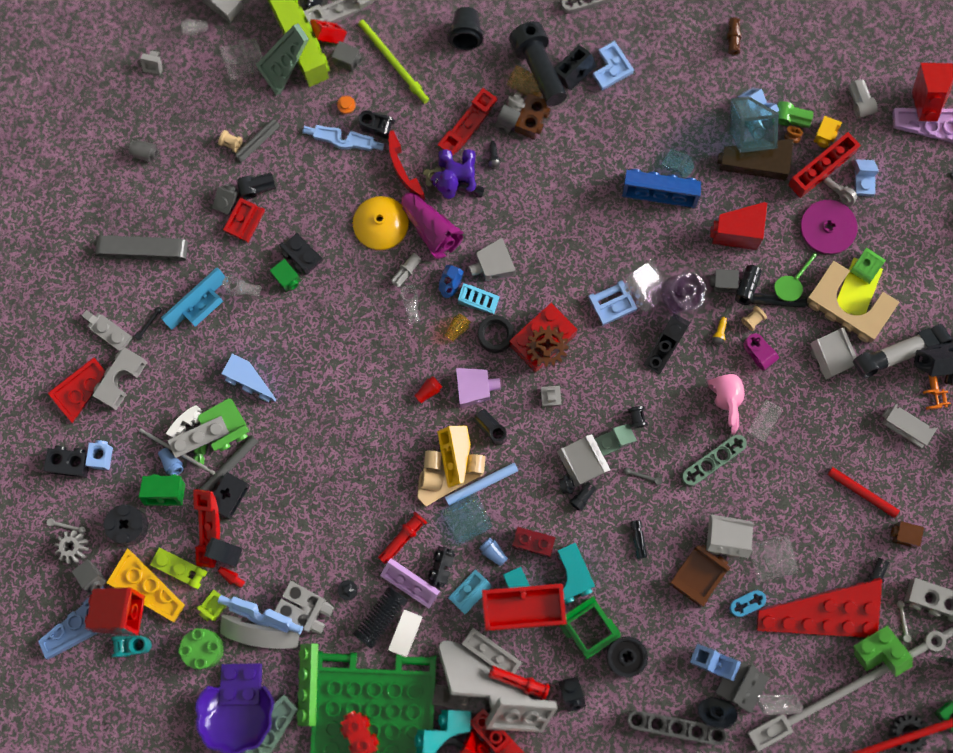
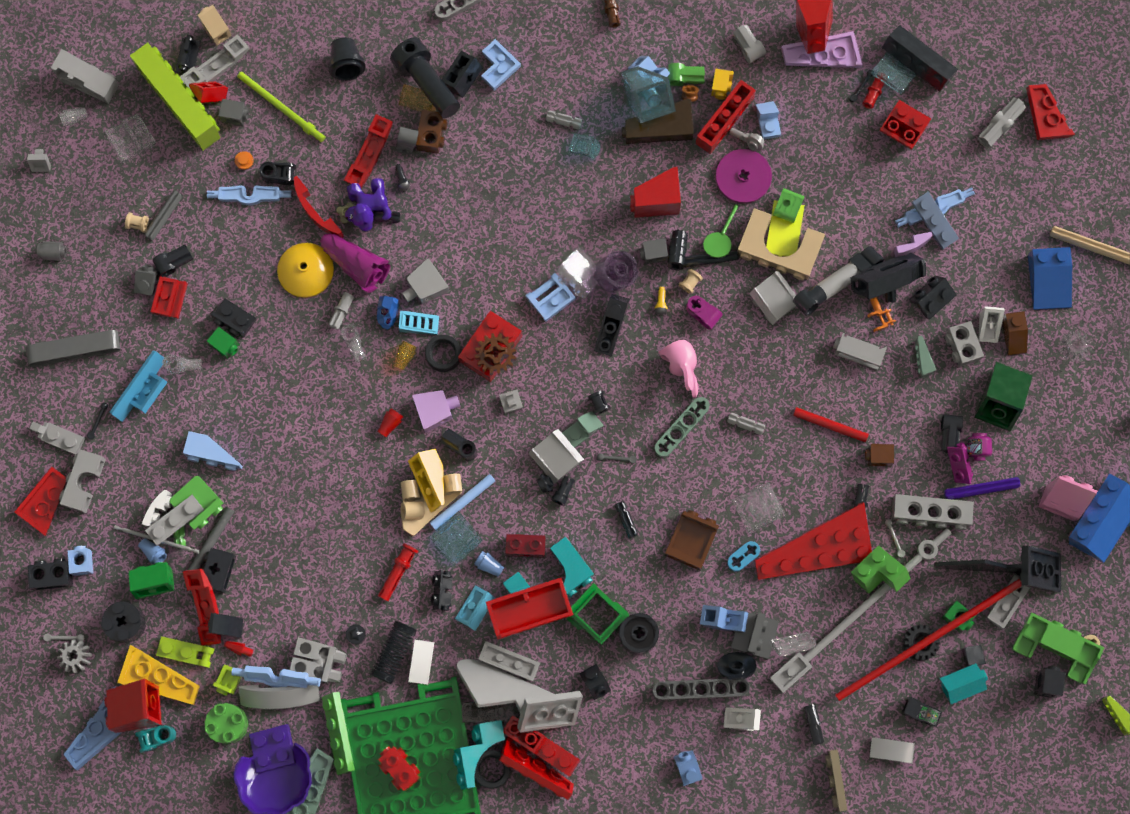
camera: 15 degrees left, 0 degrees up
(89, 576) = (99, 680): dark grey brick -> none
(282, 57) = (170, 129): sand green wing -> none
(409, 583) = (414, 613): lavender plate -> none
(516, 101) = (412, 121): light grey plate -> none
(527, 685) = (550, 683): red pin -> none
(661, 188) = (573, 174): blue slope -> none
(663, 133) = (563, 119): none -> light grey axle
(729, 536) = (712, 496): light grey slope -> none
(764, 421) = (722, 378): clear plate -> none
(778, 471) = (746, 423): none -> light grey axle

